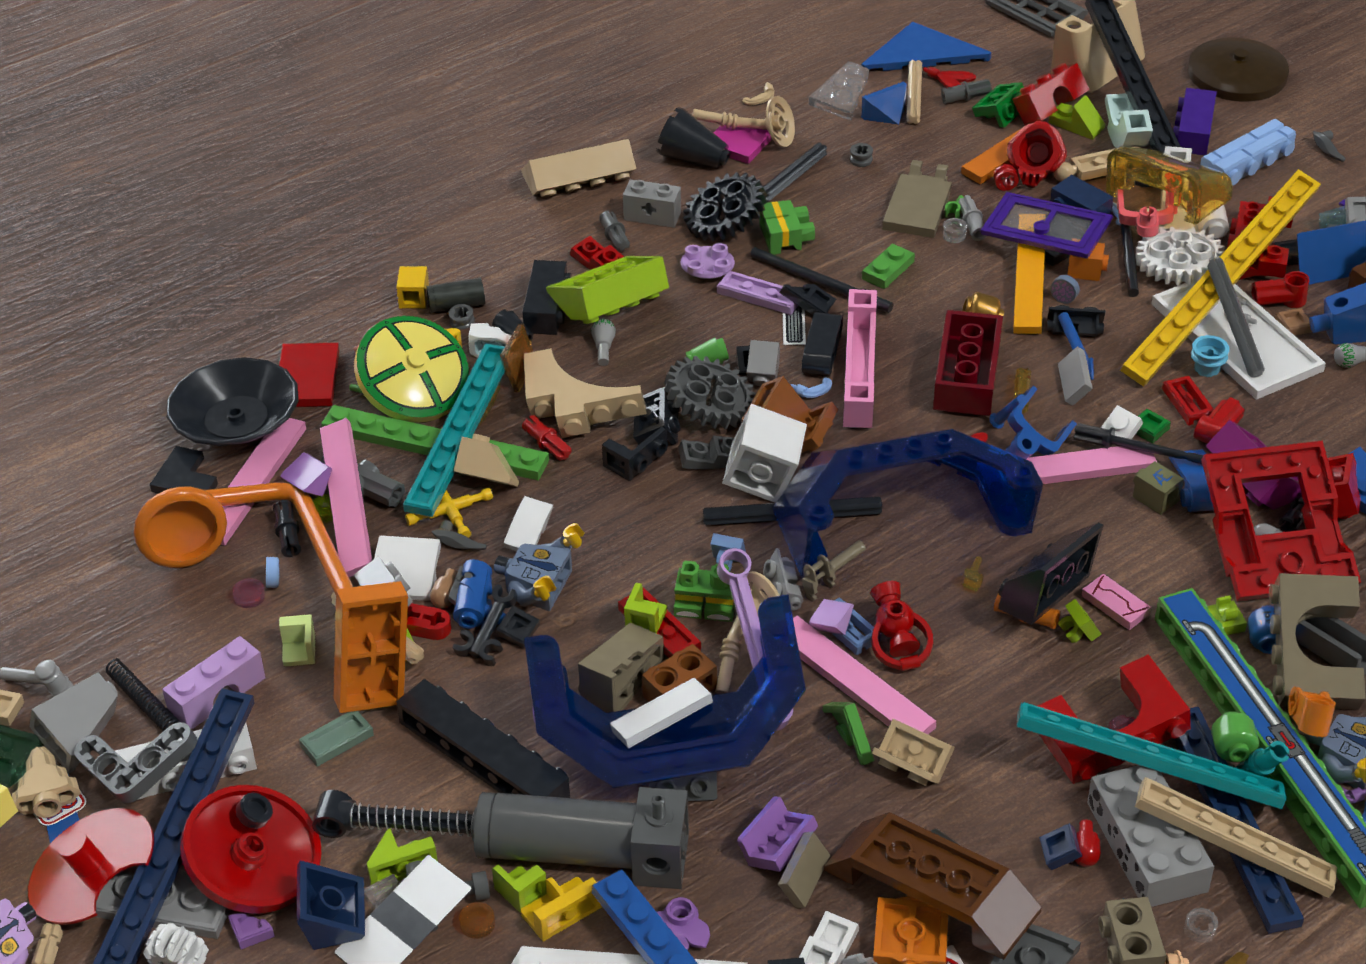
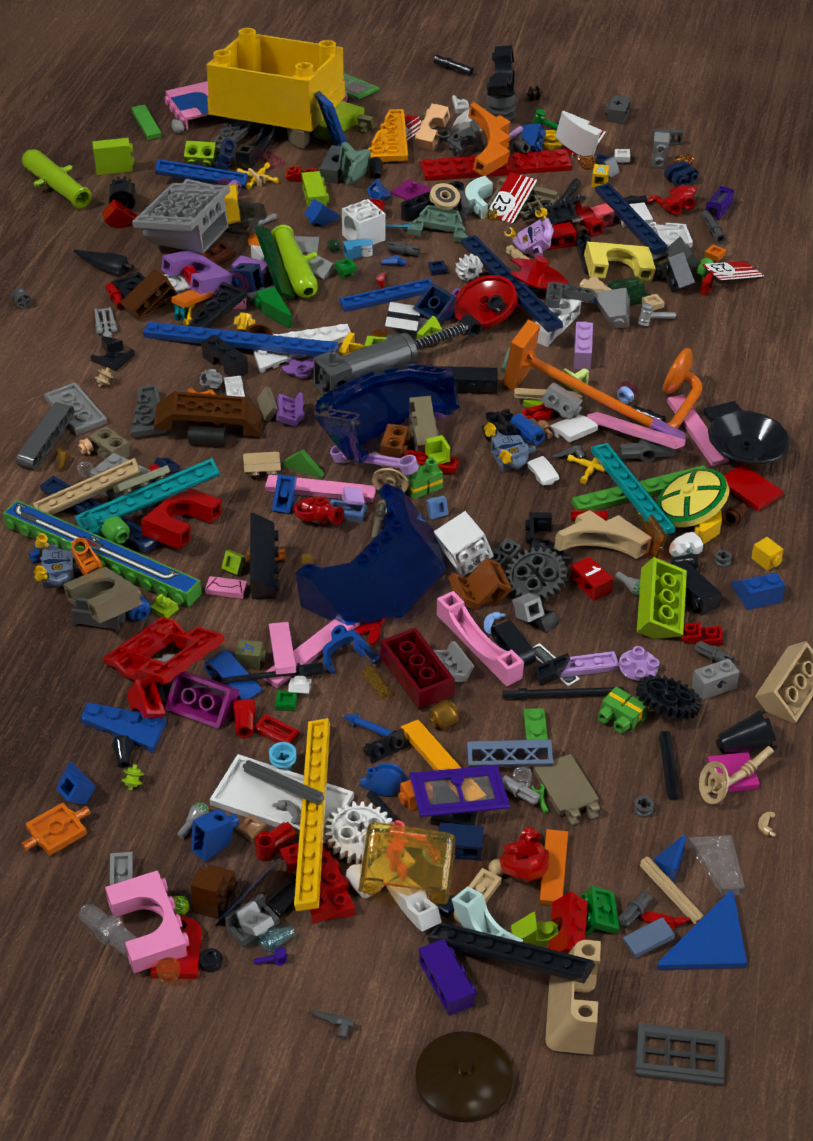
camera: 140 degrees right, 0 degrees up
(138, 701) = (610, 334): black piece -> none
(446, 295) = (739, 562): pearl dark grey pin -> none
(477, 255) = (759, 590): none -> blue slope
(484, 461) = (596, 481): tan slope -> none
(644, 361) = (591, 578): none -> red brick
(661, 712) = (382, 415): white tile -> none
(712, 348) = (565, 605): bright green cone -> none
(917, 358) = (456, 662): none -> light grey bracket
(922, 684) = (284, 493): none -> blue slope
(949, 247) = (511, 748): none -> sand blue fence
(976, 70) = (648, 937): none -> sand blue tile
(1065, 289) = (410, 762): sand blue tile -> none
(1075, 376) = (352, 701): light grey tile -> none
(1106, 289) = (384, 779): none -> blue hat
(1109, 472) = (282, 648): none -> bright pink tile
(1166, 768) = (141, 480): none -> olive plate
(1252, 150) = (383, 963): light blue brick -> none

